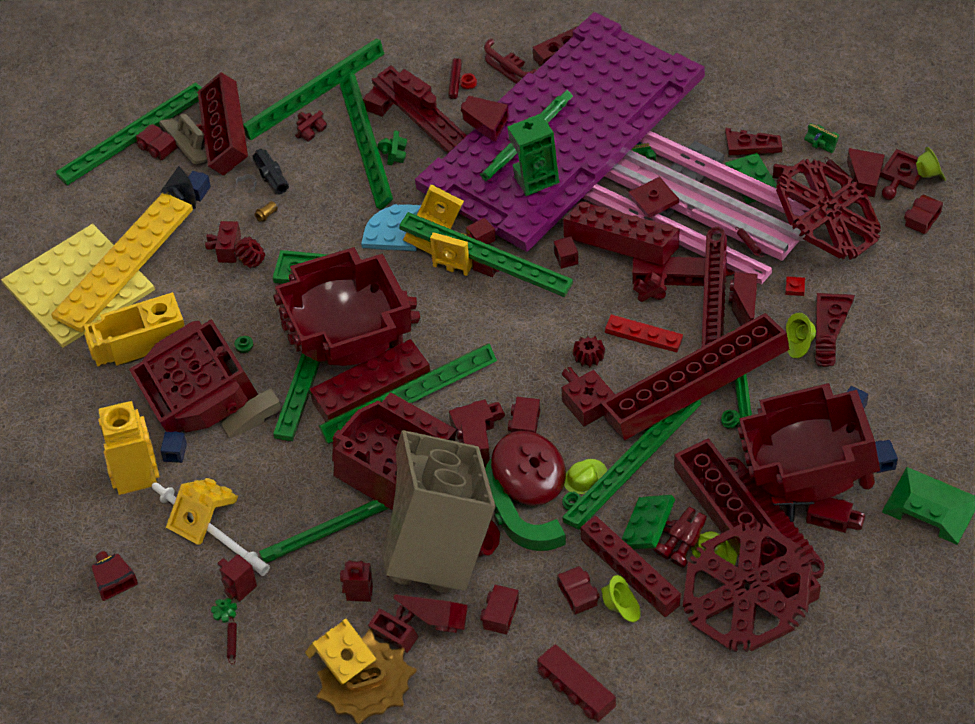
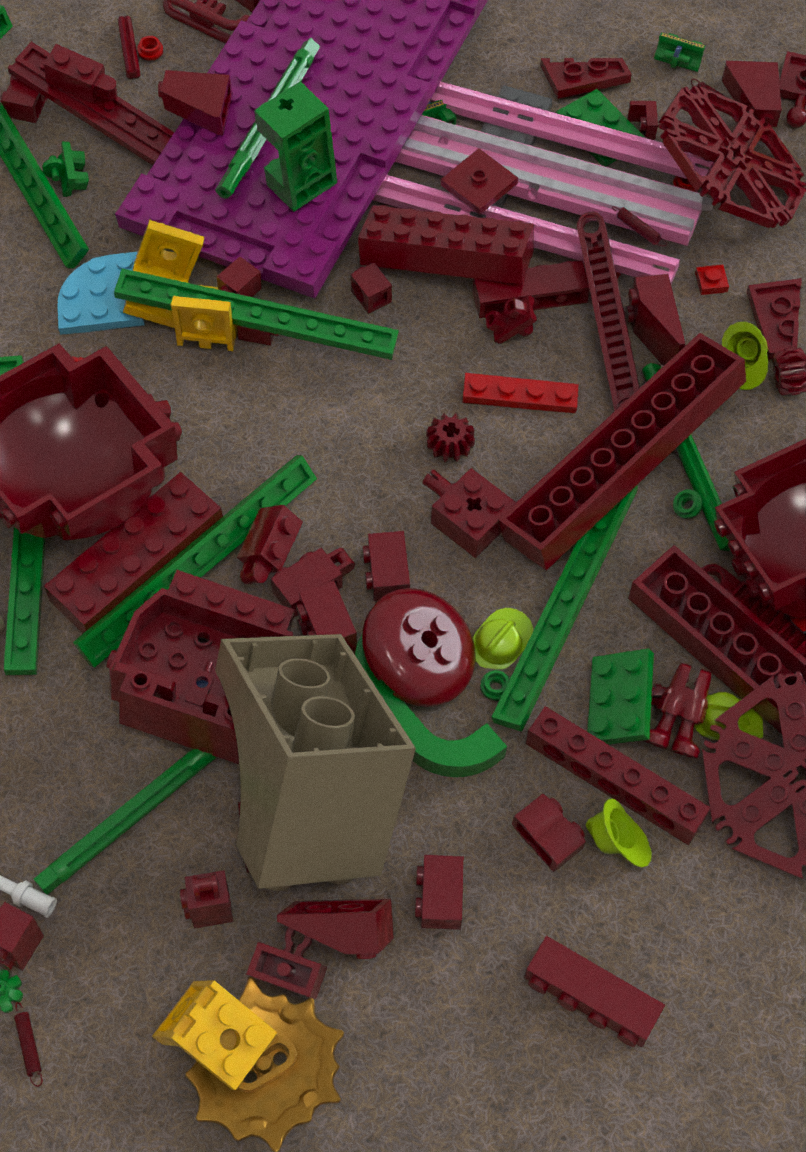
camera: 20 degrees left, 10 degrees up
(453, 391) = (268, 543): none -> dark red brick

